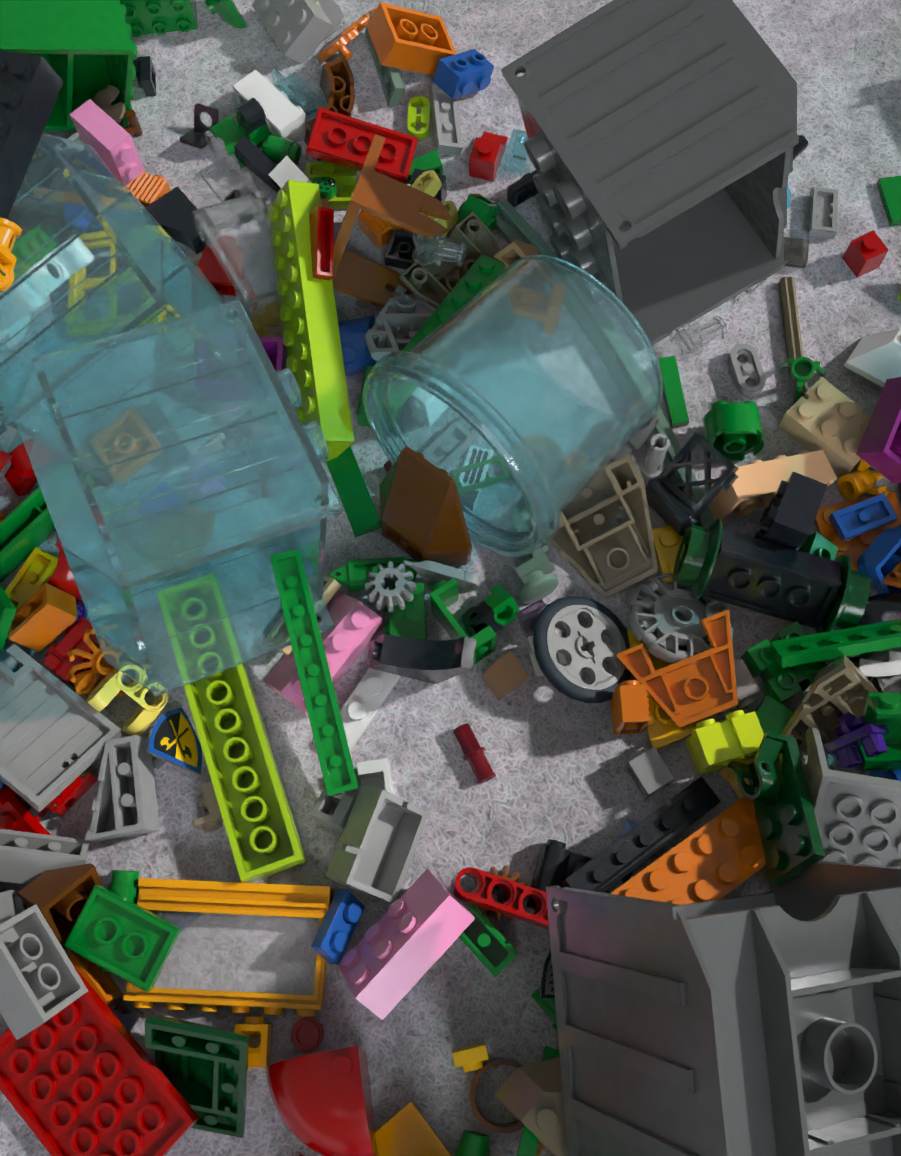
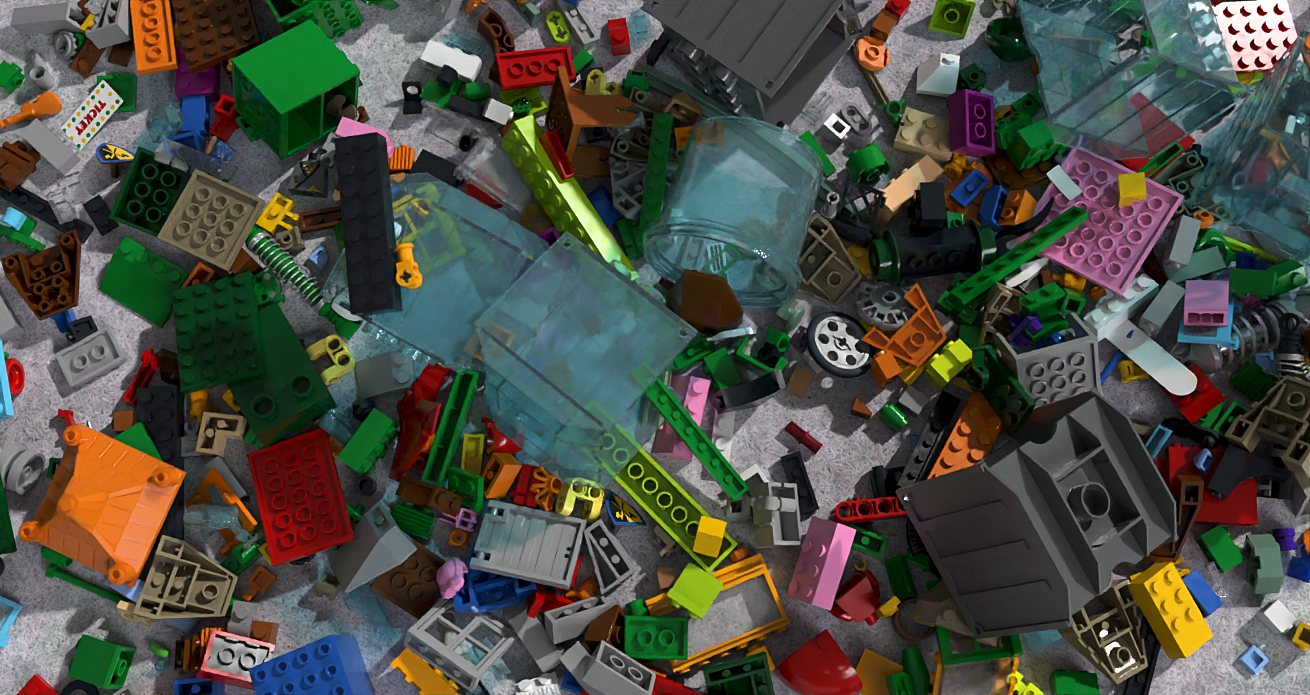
camera: 25 degrees left, 5 degrees up
(73, 826) = (585, 590): none -> orange rock
(190, 861) = (667, 577): none -> medium nougat brick
(206, 899) = (694, 591): none -> lime bracket
(264, 828) = (709, 536): none -> yellow piece
(303, 875) = (739, 554): none -> orange tile
(307, 1034) = (787, 642): red plate -> none
(338, 926) = (776, 573): blue plate -> none
(375, 824) = (773, 503): none -> light grey bar
(398, 578) = (708, 366): light grey gear -> none
(435, 1020) = (858, 597): none -> red torso
(439, 802) = (797, 474): none -> black plate
(513, 1020) = (900, 577): none -> green plate
(570, 751) = (860, 409): none -> dark orange slope
(612, 782) = (893, 417): none -> green brick
(709, 370) = (834, 130): none -> light grey brick
(805, 297) = (872, 53): none -> orange tile
(838, 269) = (884, 25): none -> dark orange brick

